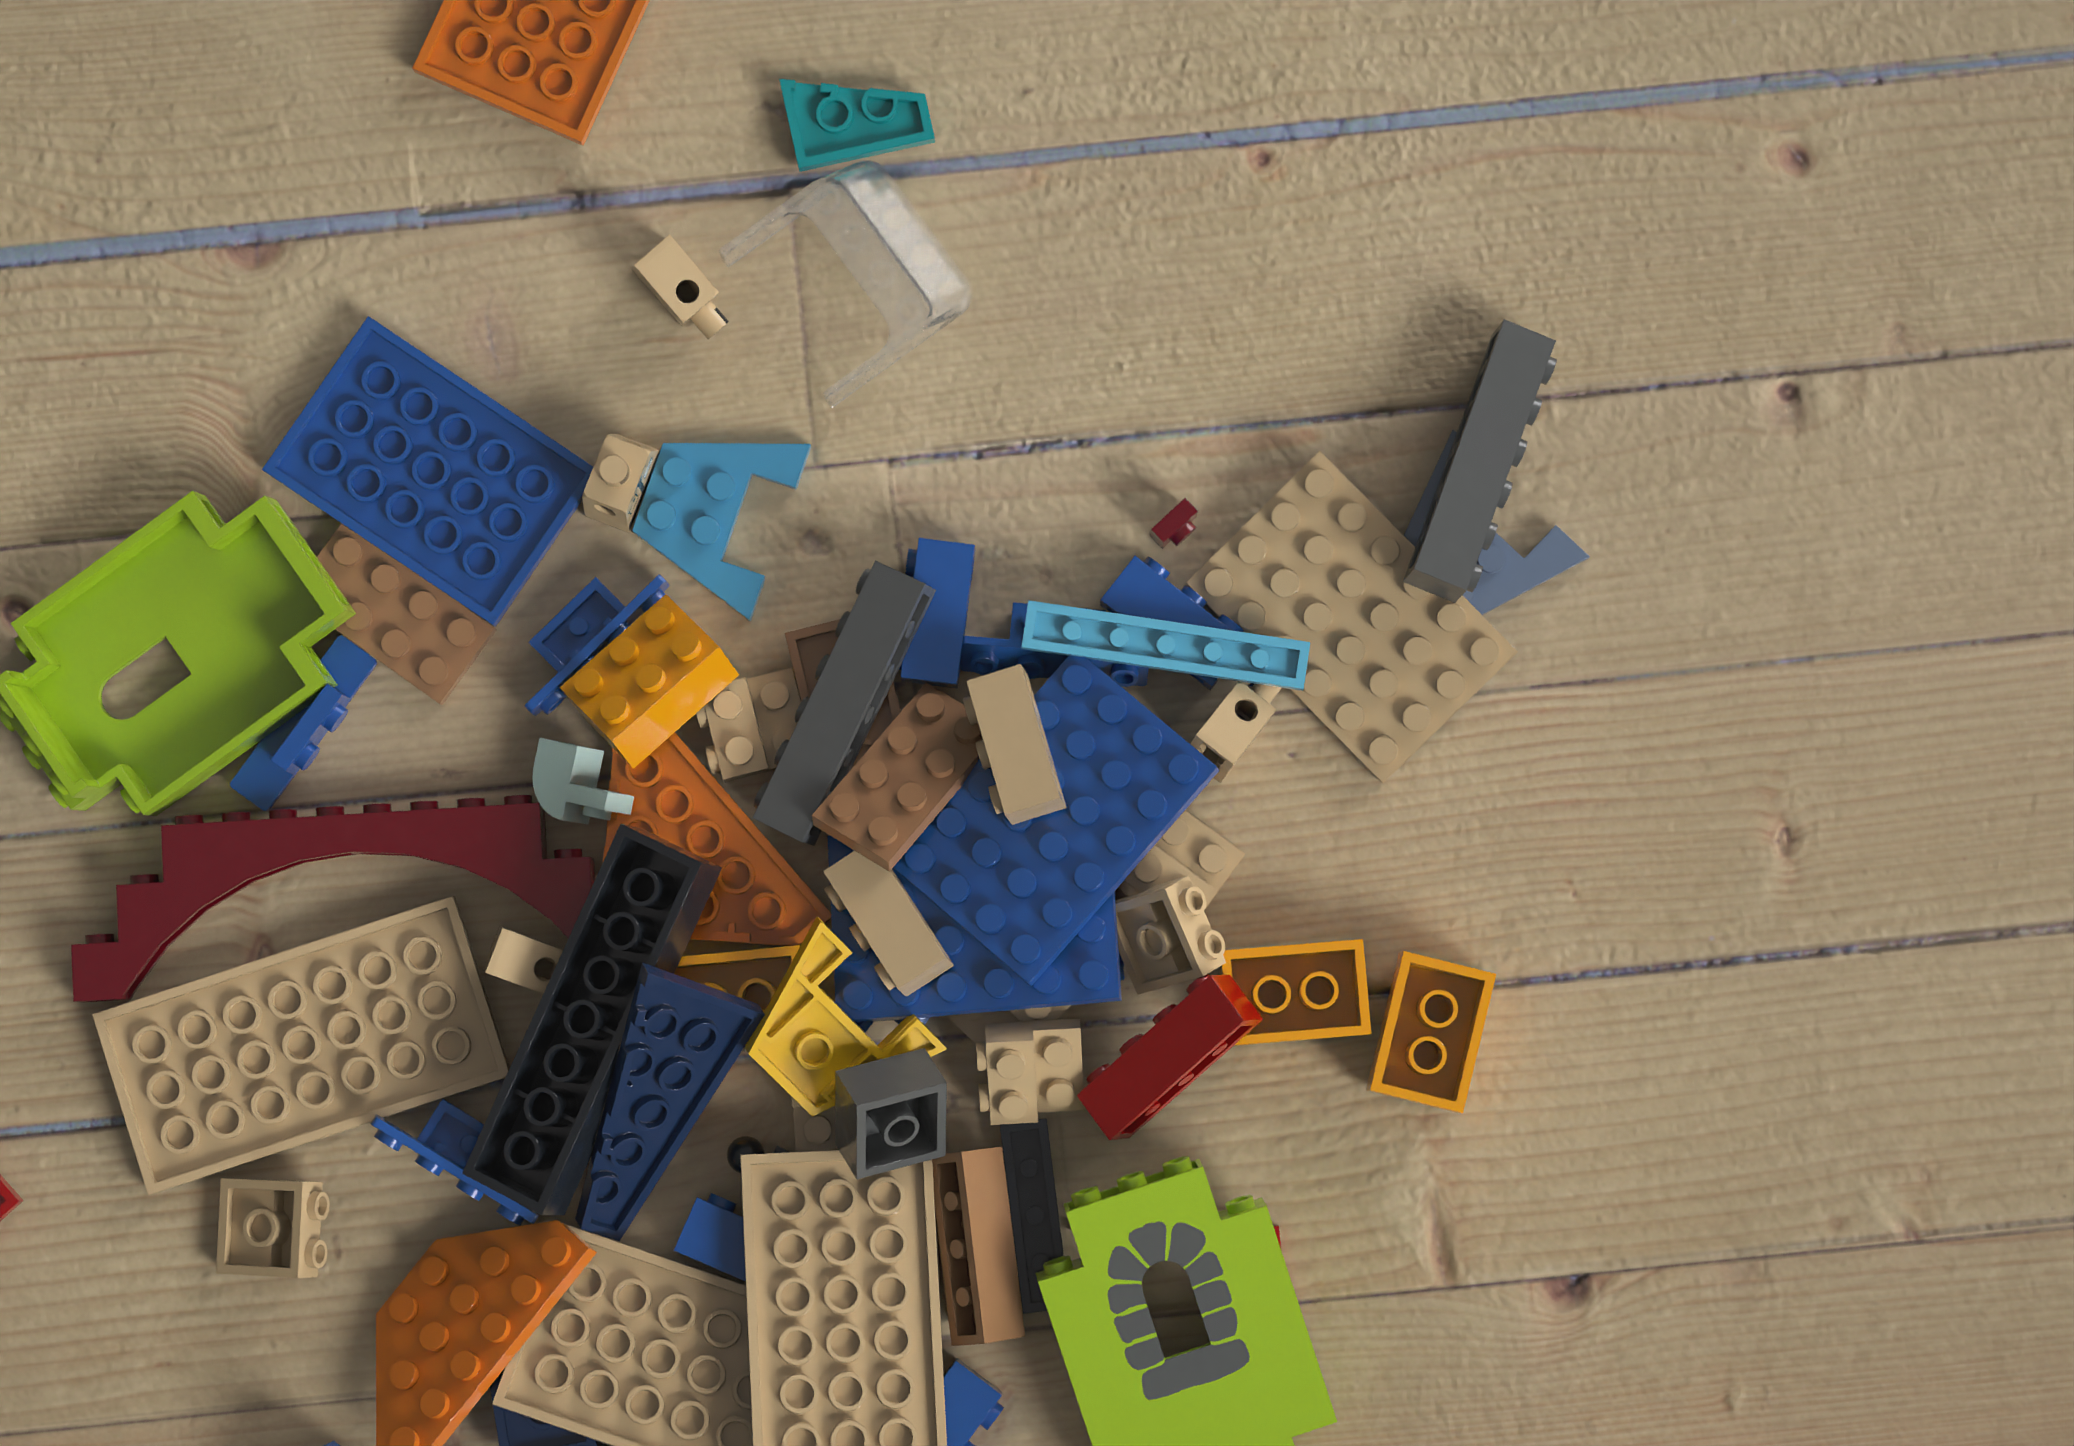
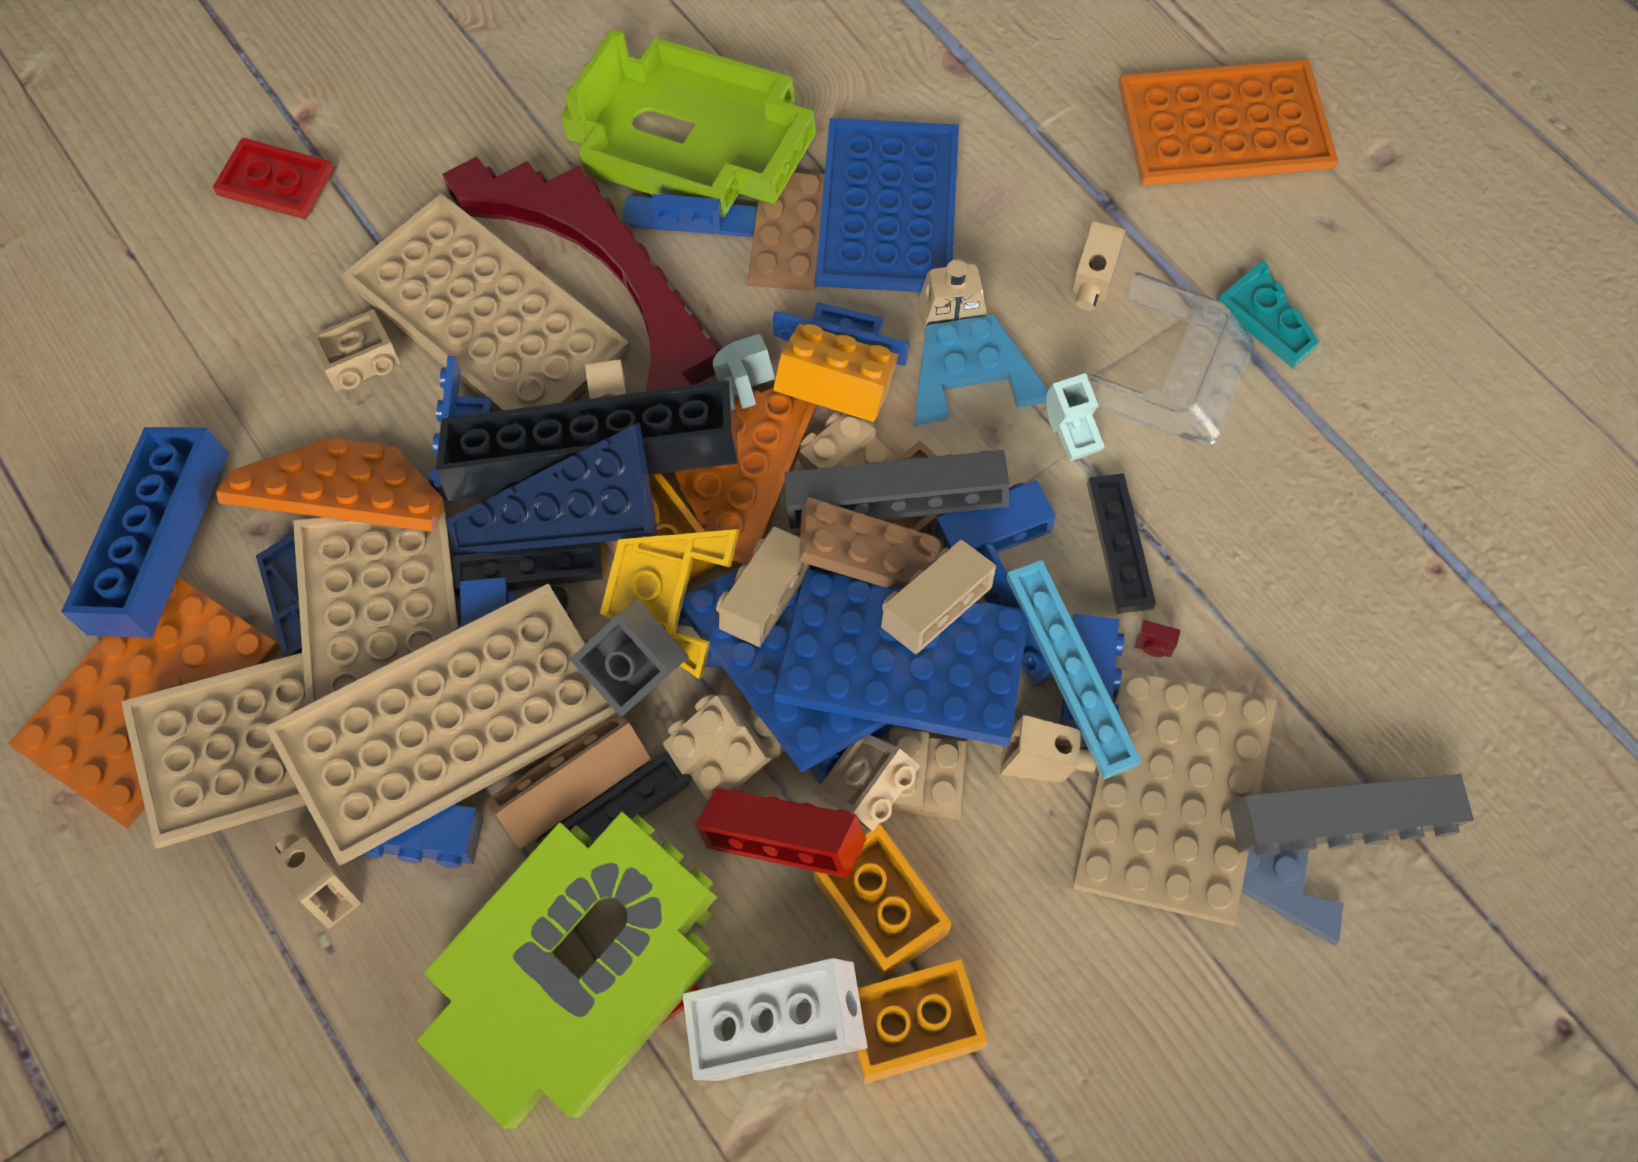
camera: 60 degrees right, 20 degrees down
(674, 1195) = (531, 566): none -> black plate
(859, 440) = (1070, 414): none -> light aqua brick
(1038, 486) = (1121, 543): none -> black plate
(1347, 1214) = (769, 1020): none -> white brick

